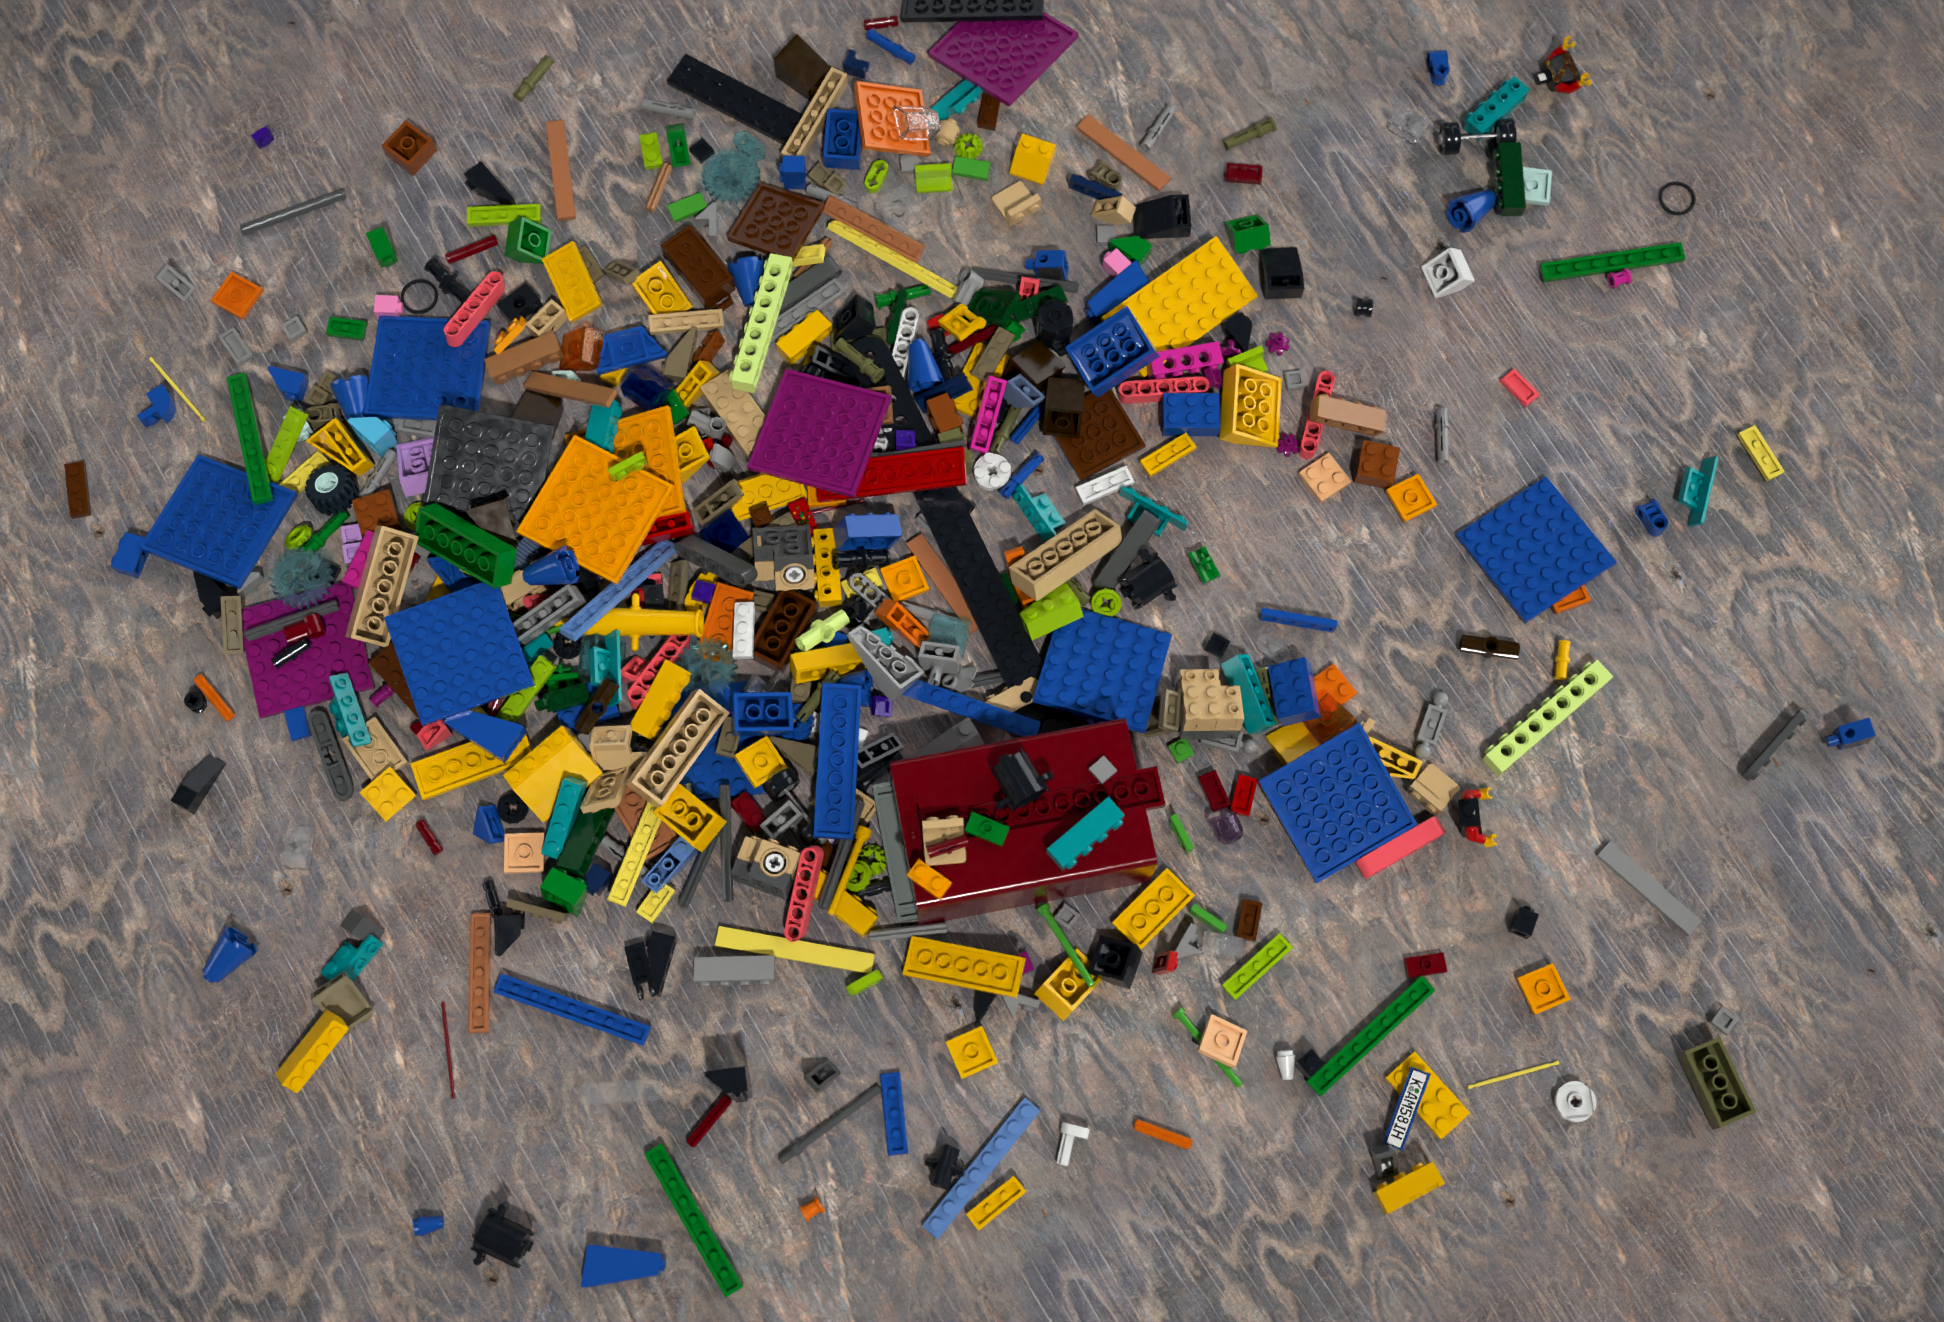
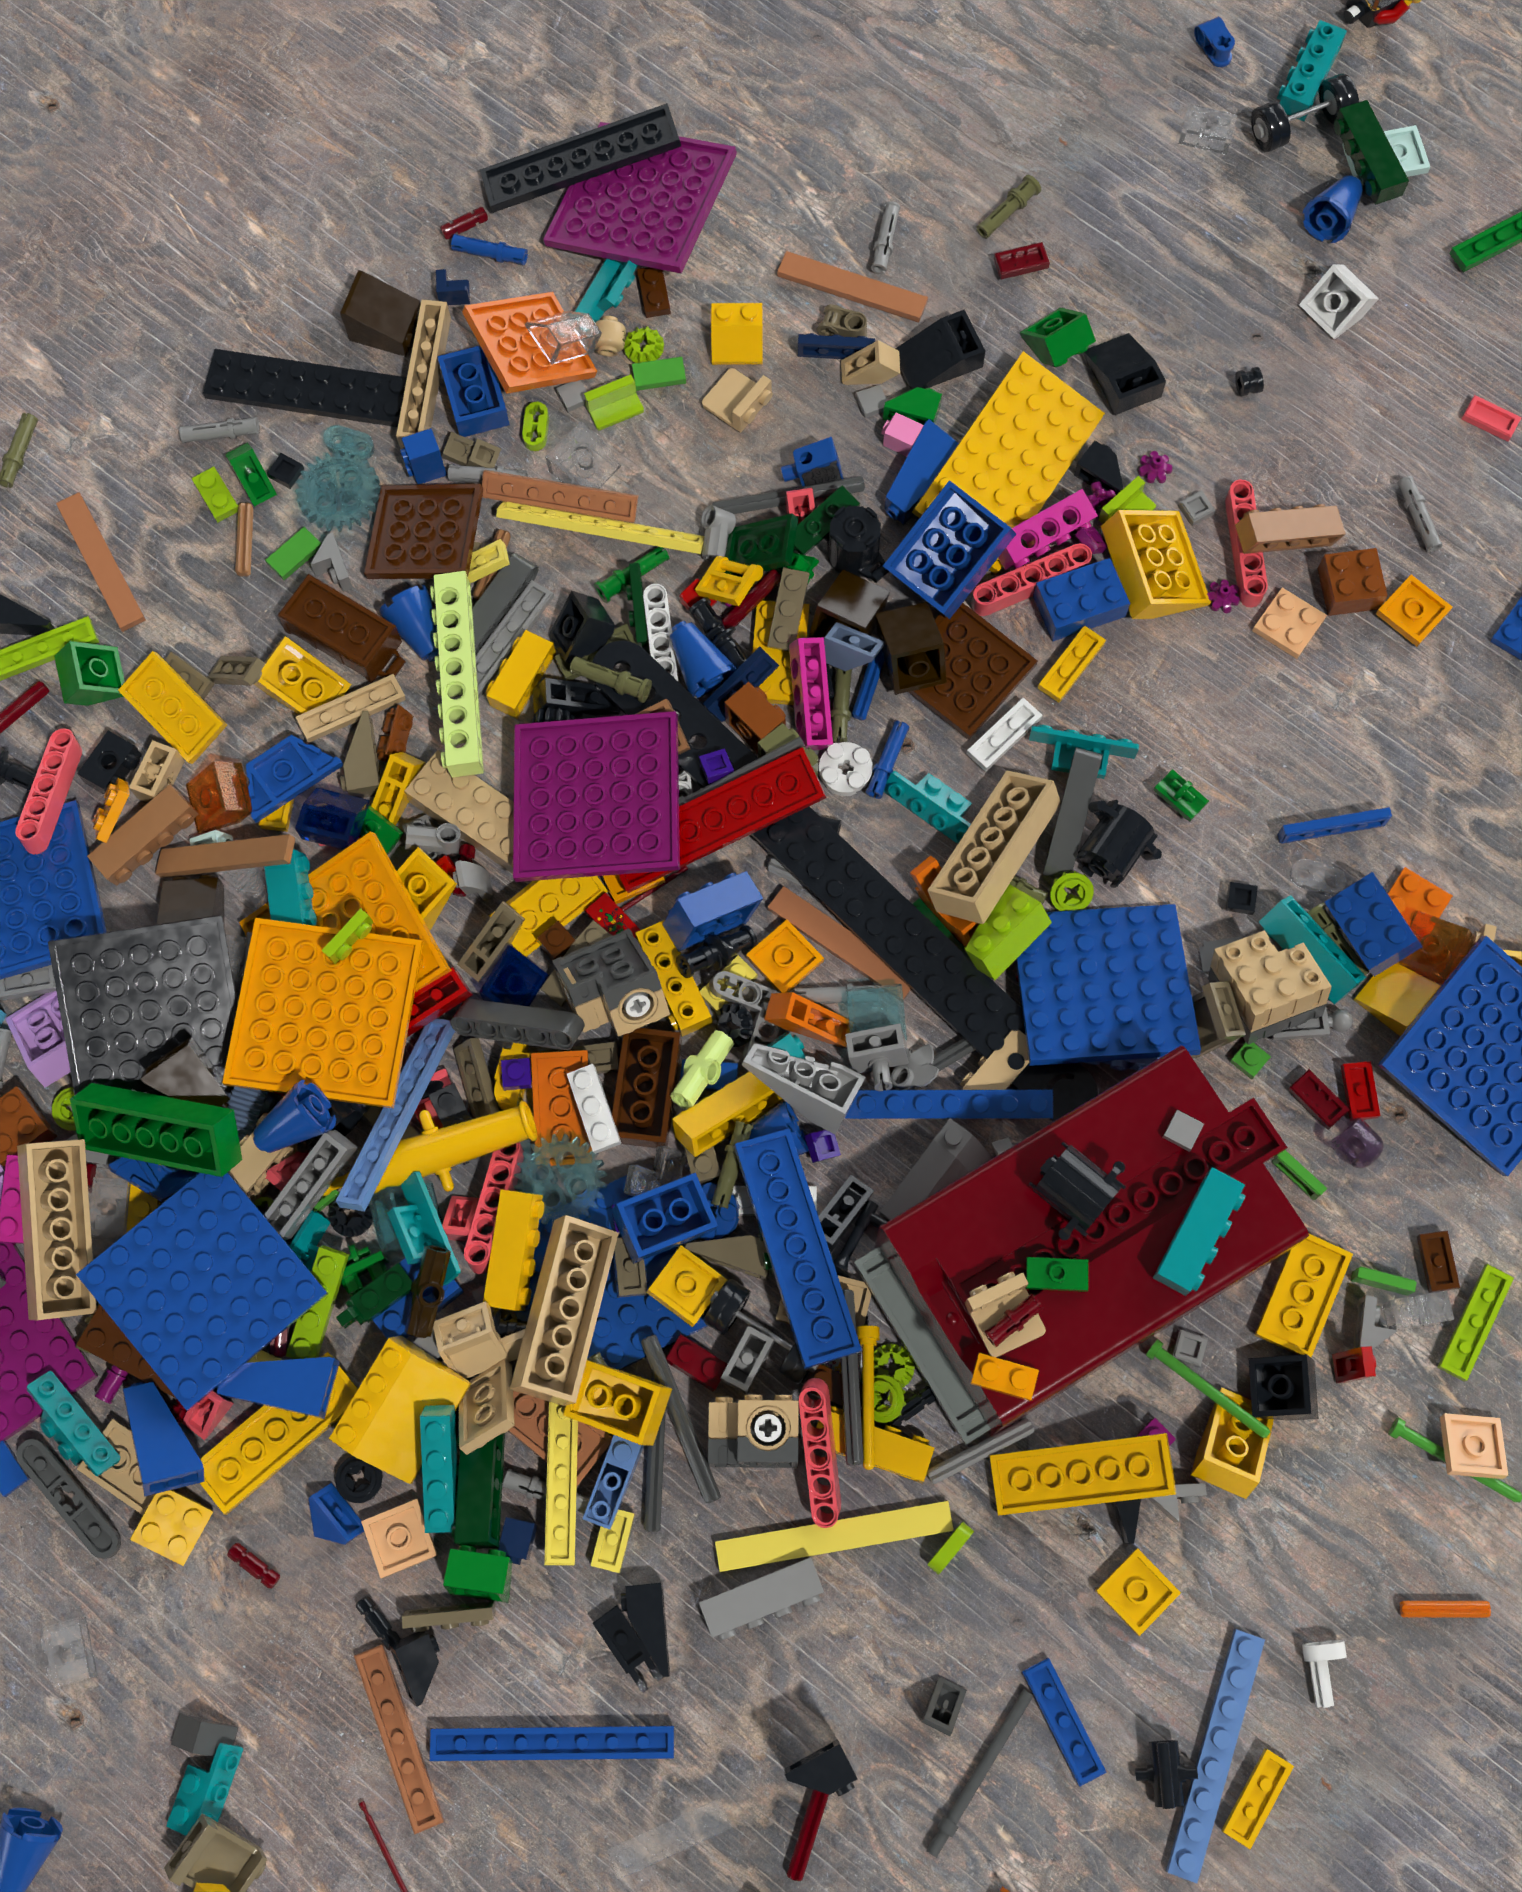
camera: 15 degrees left, 0 degrees up
(398, 740) = (160, 1445): none -> blue slope

